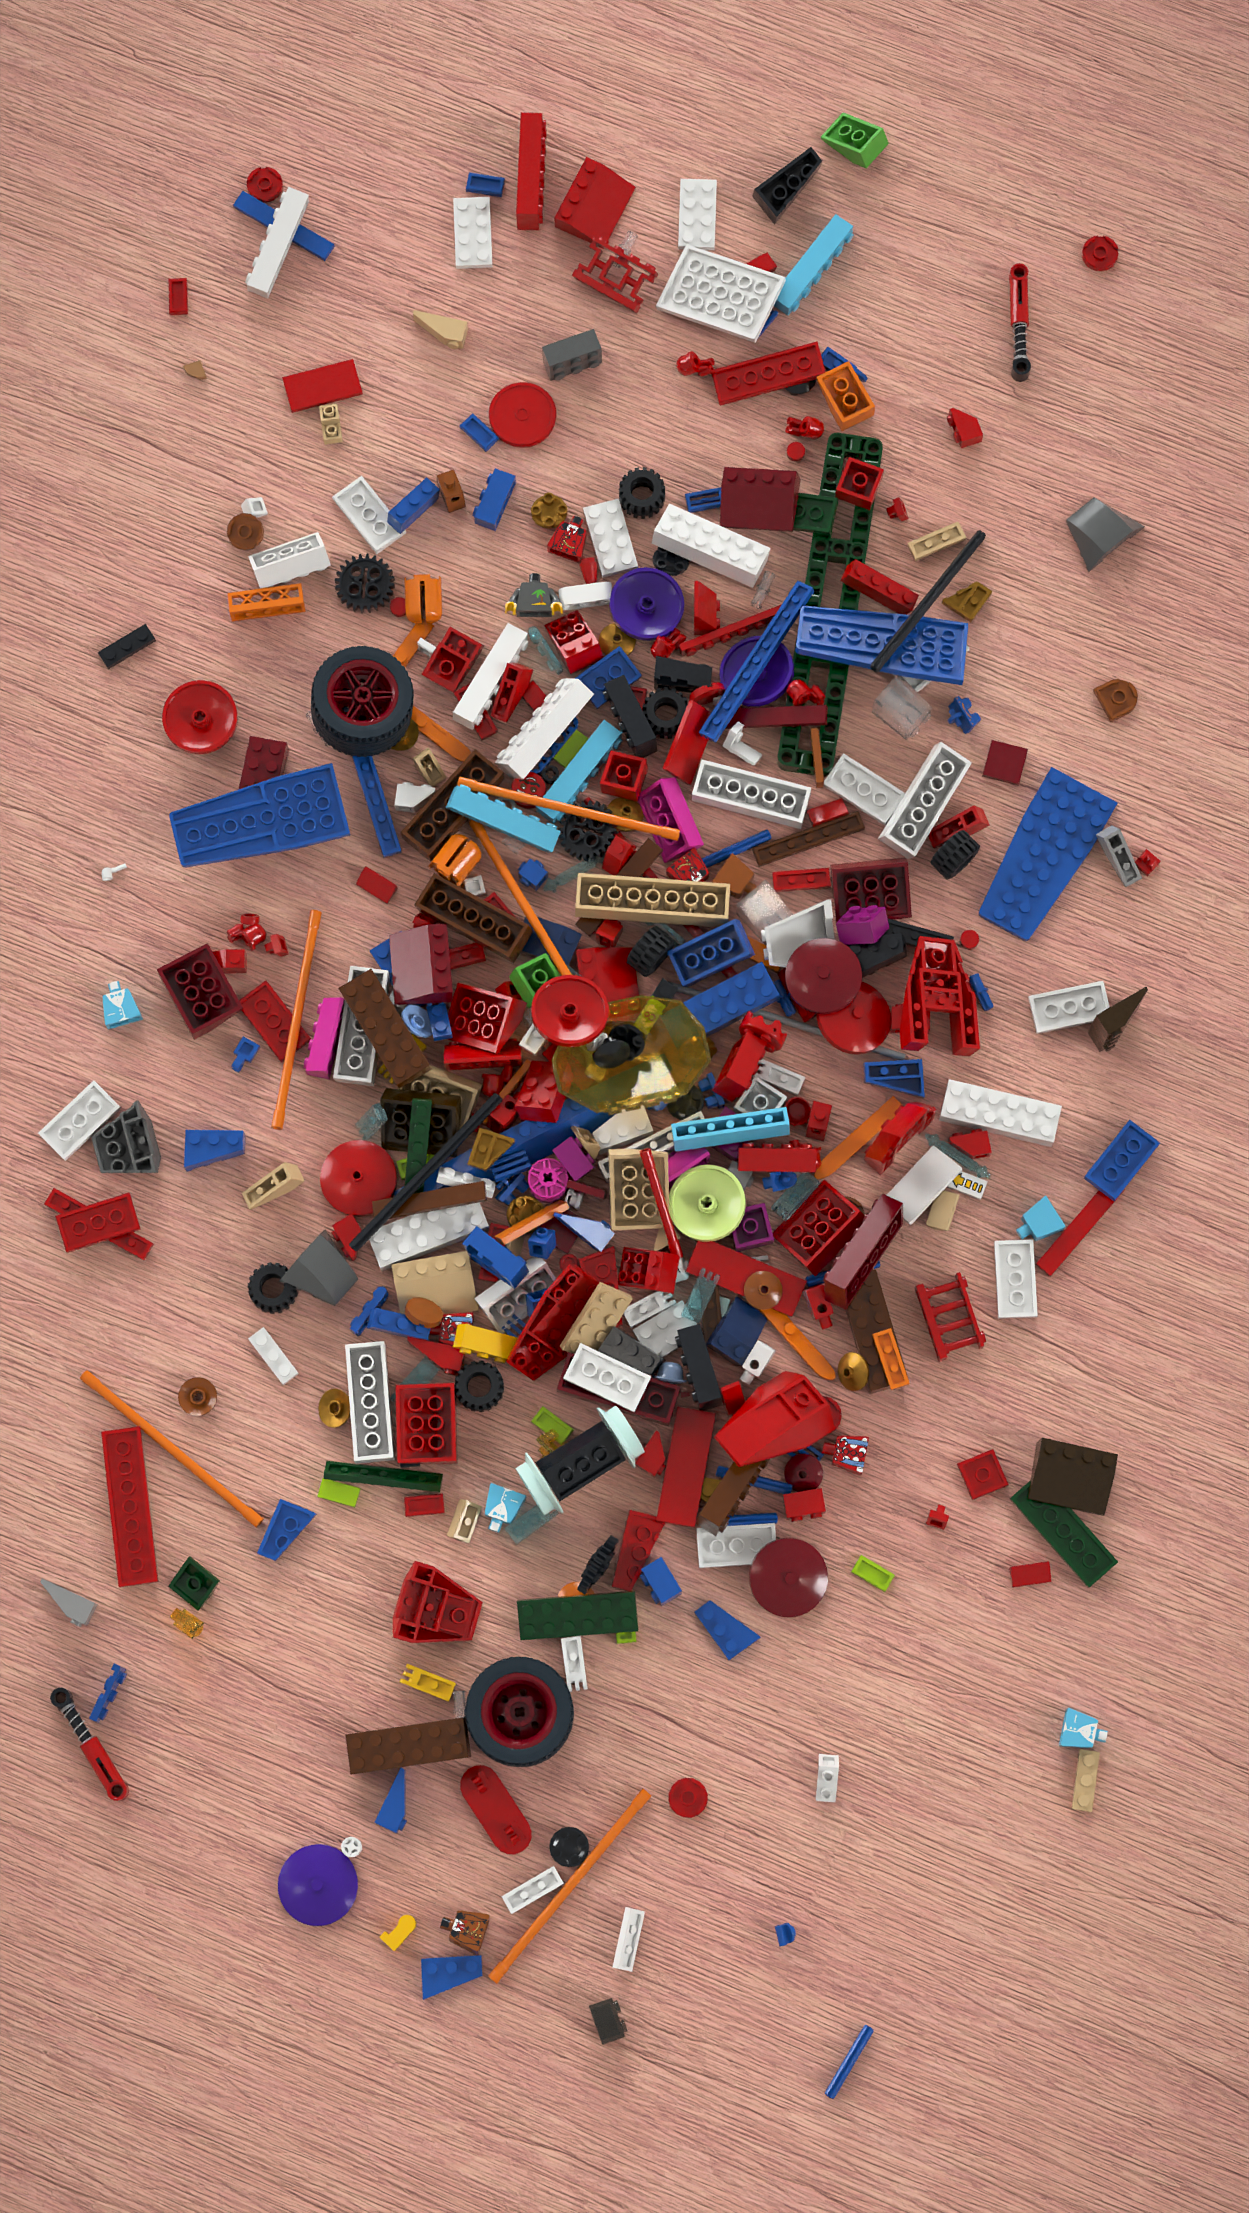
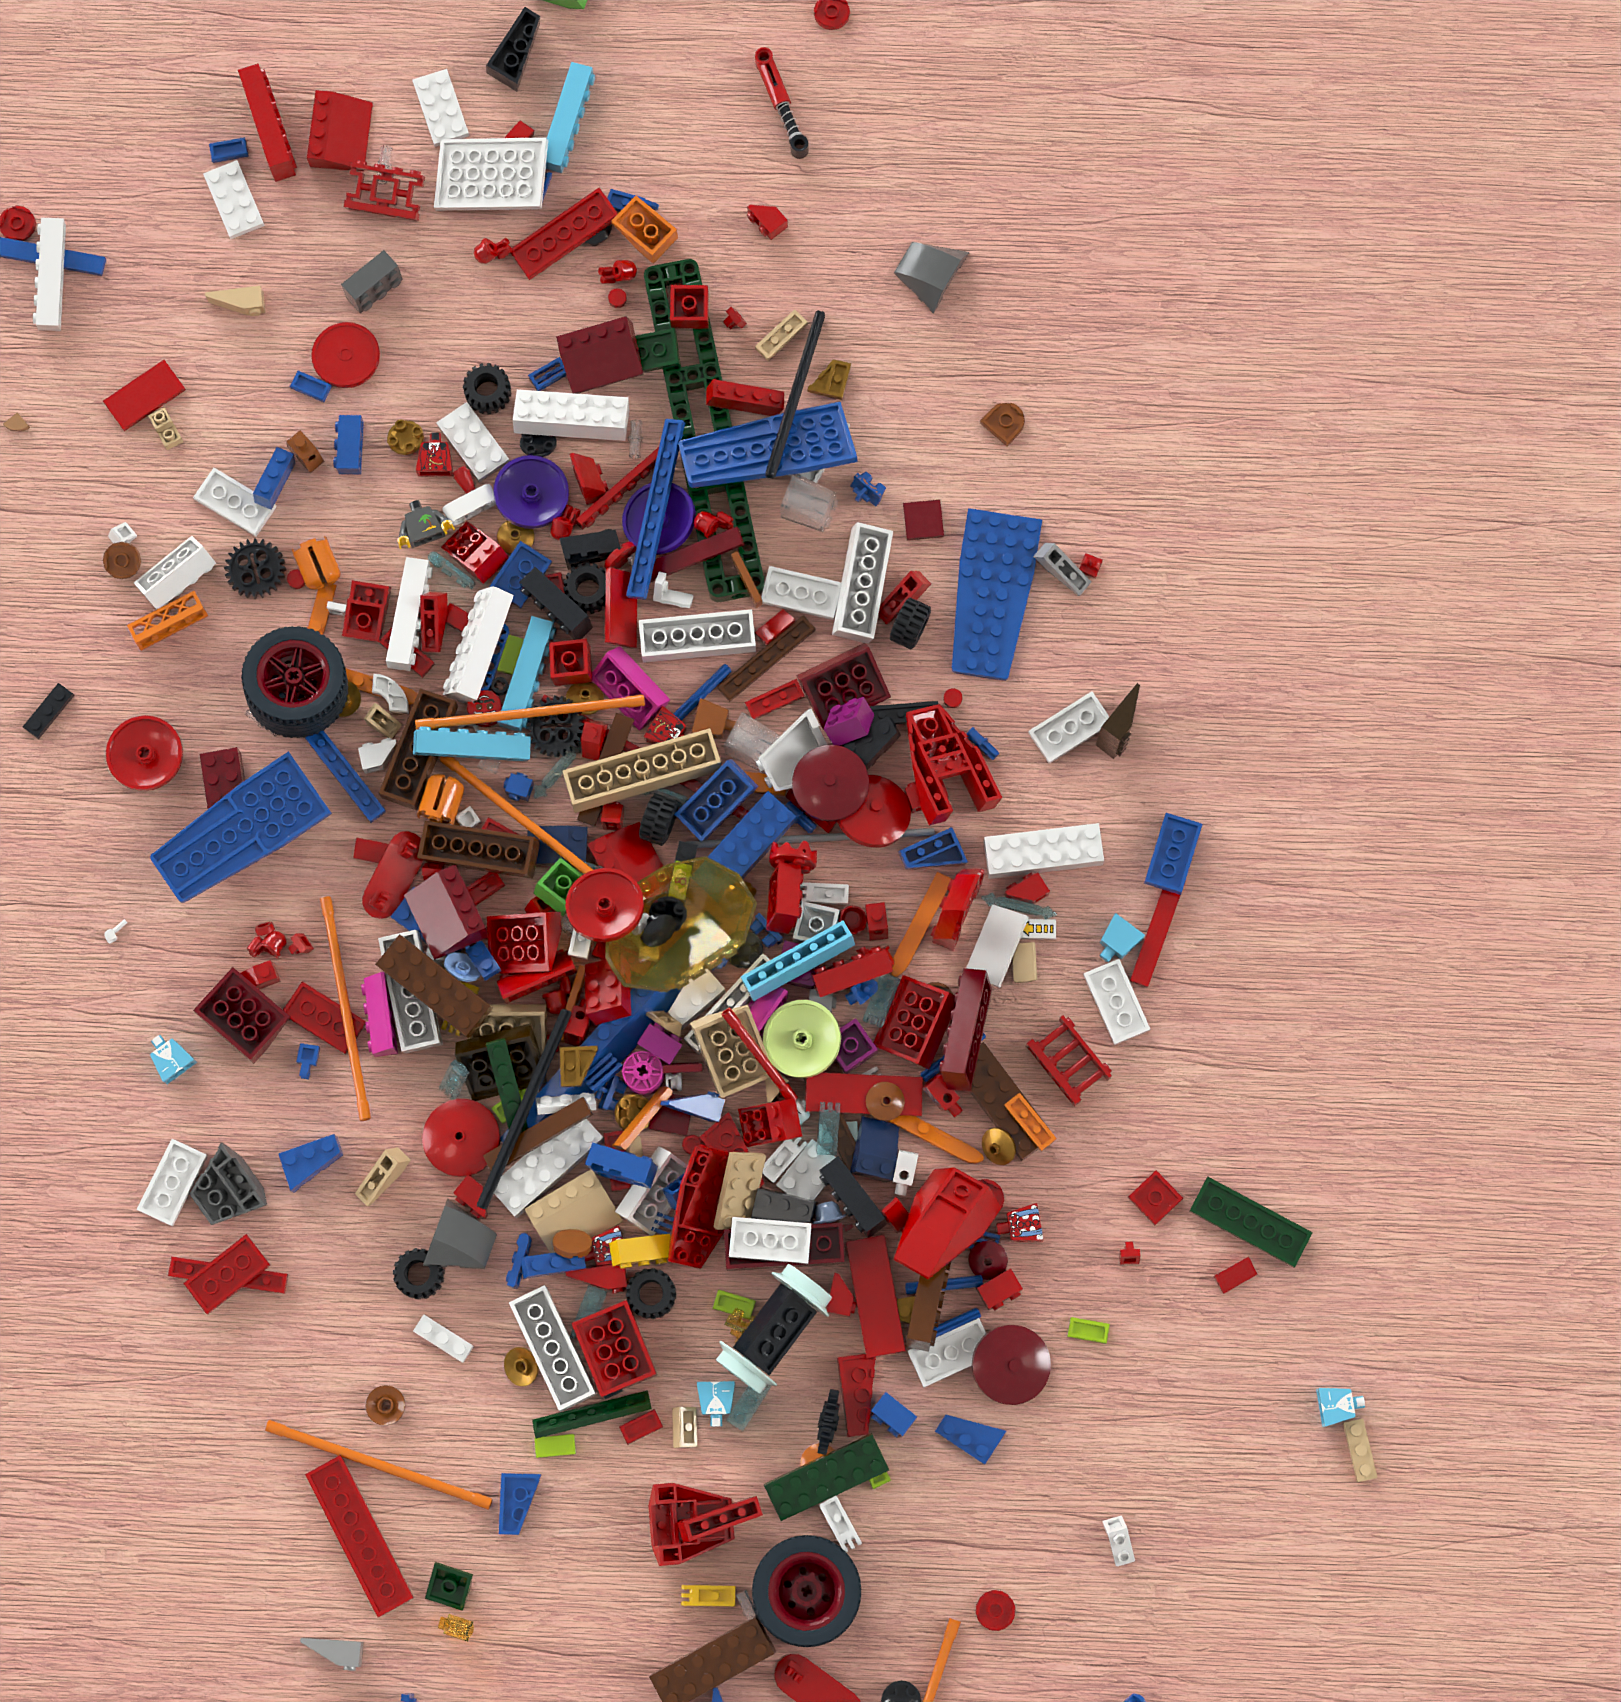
camera: 20 degrees left, 0 degrees up
(385, 913) = (392, 875): none -> red piece
(448, 744) = (391, 692): none -> white tile
(464, 1615) = (719, 1519): none -> red brick
(542, 1242) = (659, 1134): blue brick -> none
(1072, 1476) = (1239, 1168): dark brown slope -> none

